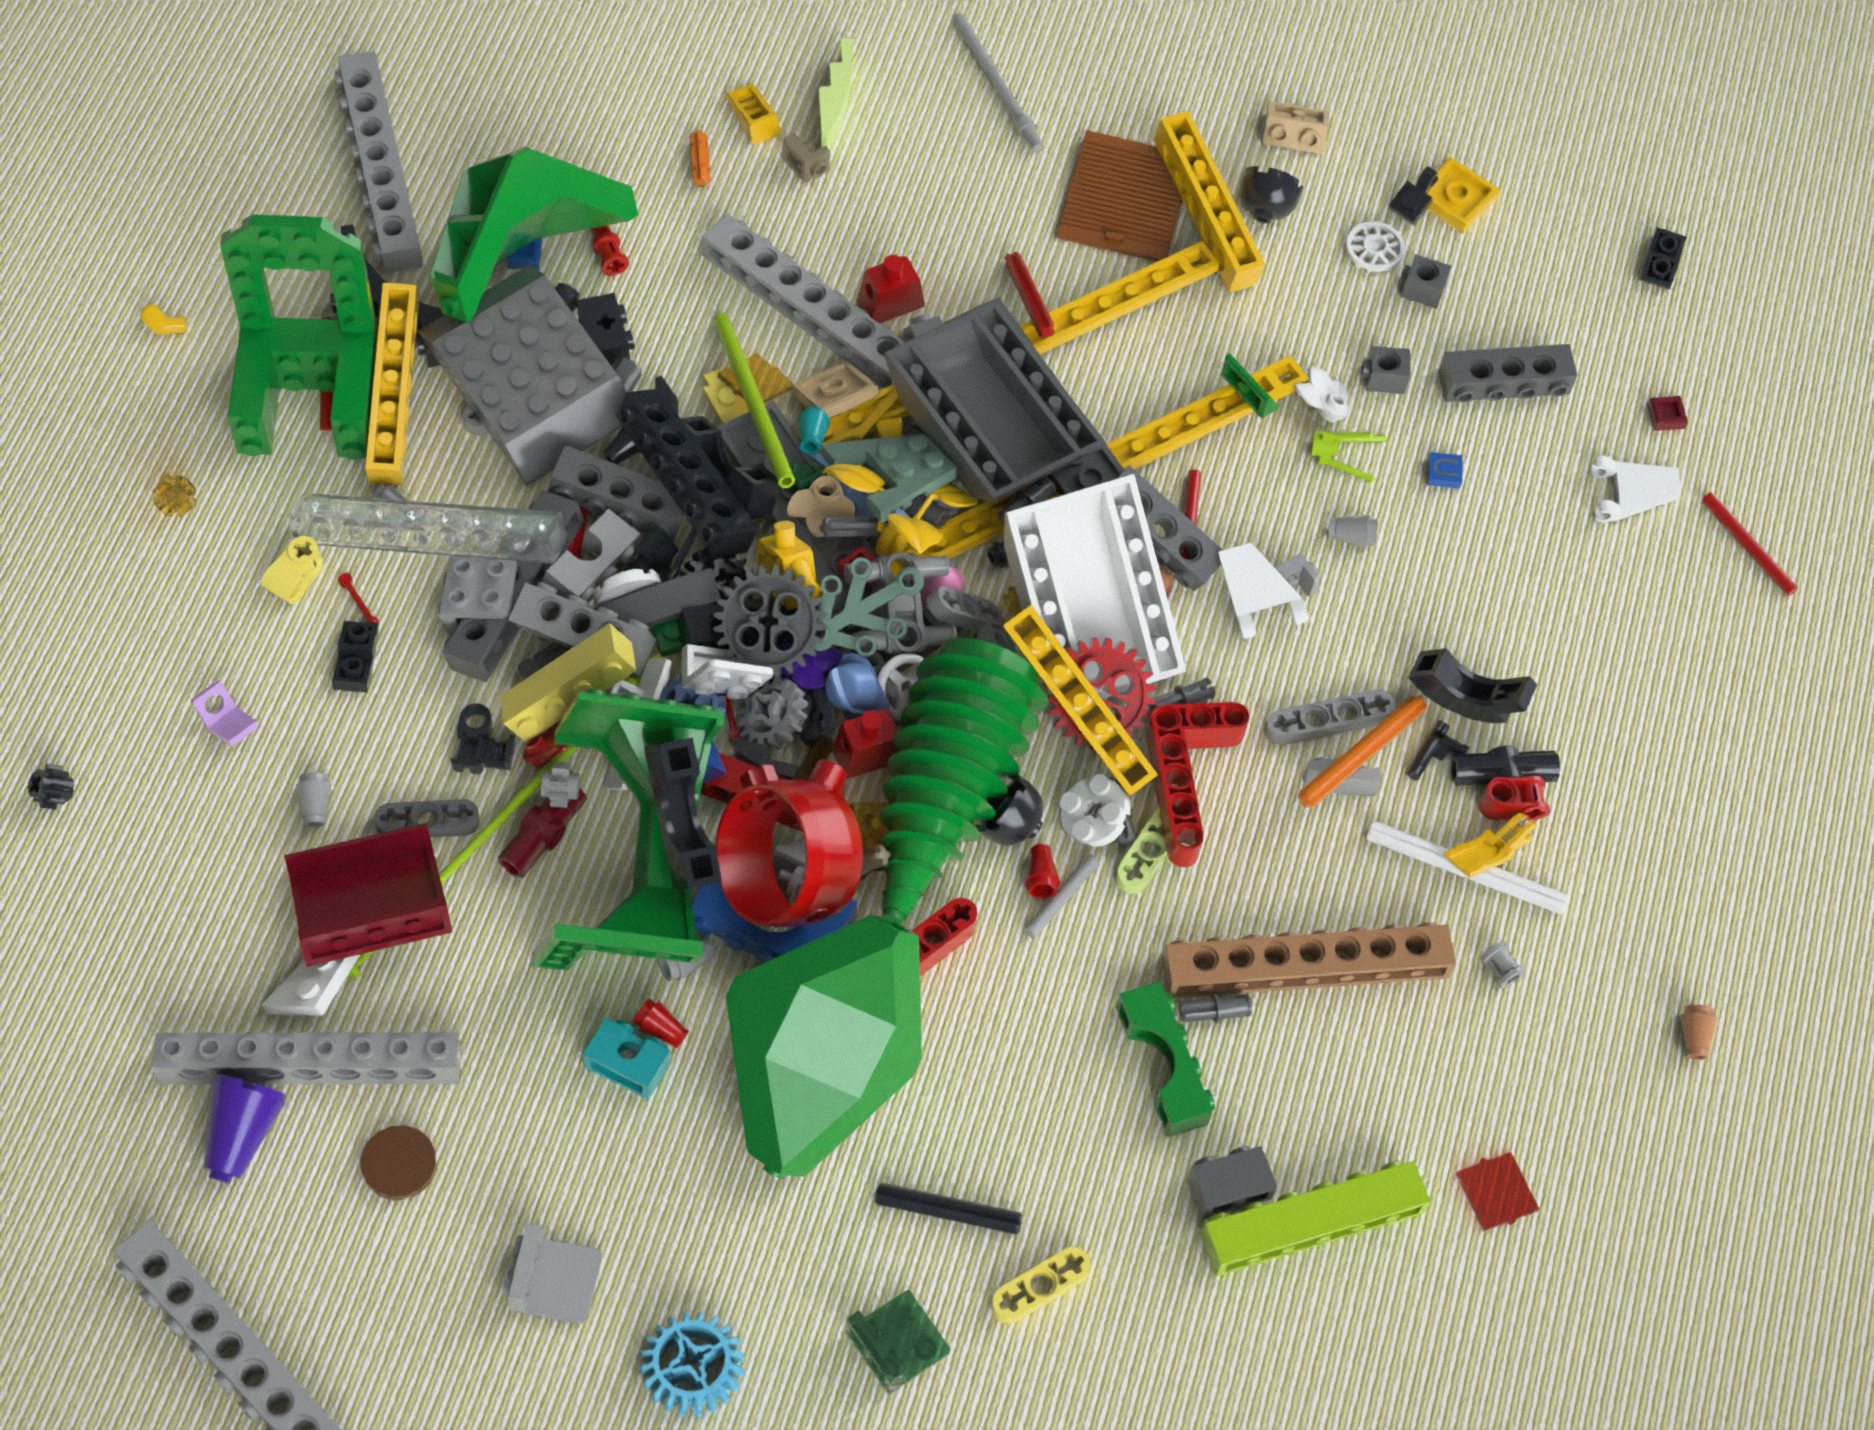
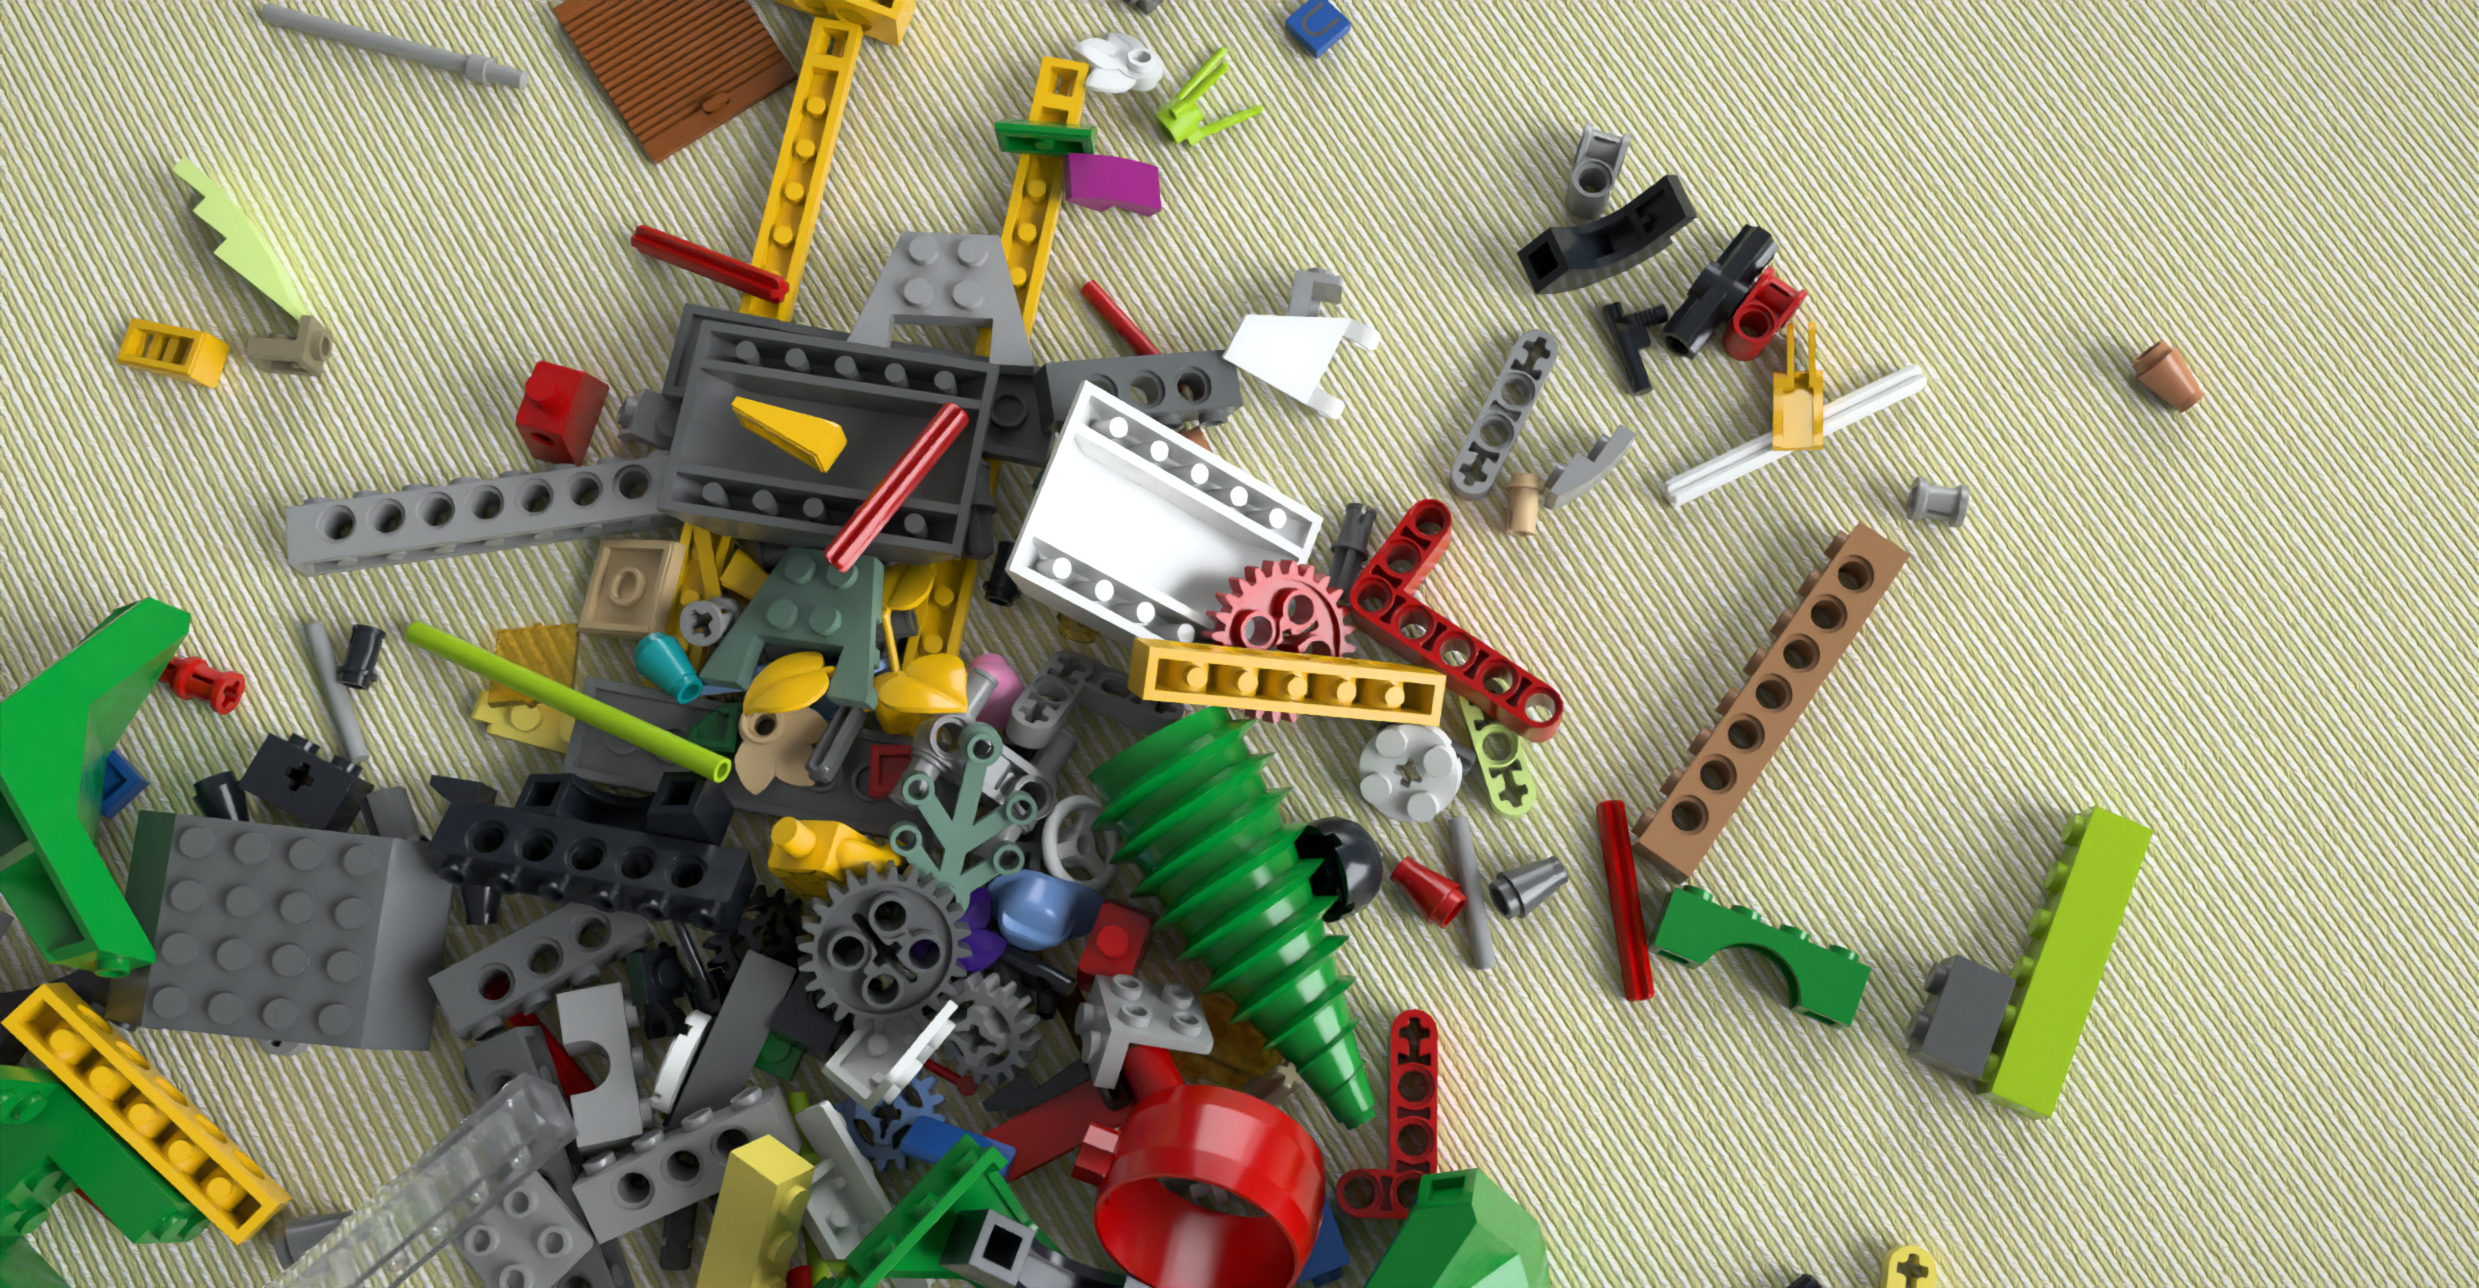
camera: 40 degrees left, 15 degrees up
(659, 310) = (336, 693): none -> light grey bar
(685, 306) = (361, 657): none -> black pin
(700, 158) = (176, 468): orange axle -> none
(848, 756) = (1141, 1013): none -> light grey bracket
(851, 426) = (708, 617): none -> light grey bush
(981, 379) = (798, 434): none -> yellow slope
(999, 442) = (896, 487): none -> red axle
(1091, 917) = (1526, 887): none -> dark grey cone
(1127, 401) = (948, 283): none -> light grey wing
(1130, 973) = (1625, 901): none -> red axle
(1215, 1008) = (1742, 848): dark grey axle -> none
(1258, 435) = (1111, 181): none -> magenta slope
(1290, 761) = (1523, 504): none -> tan pin
(1354, 530) = (1309, 184): light grey cone -> none
(1362, 751) = (1589, 426): orange axle -> none
(1497, 1191) = (2172, 740): clear red piece -> none
(1512, 656) = (1596, 165): none -> light grey piece

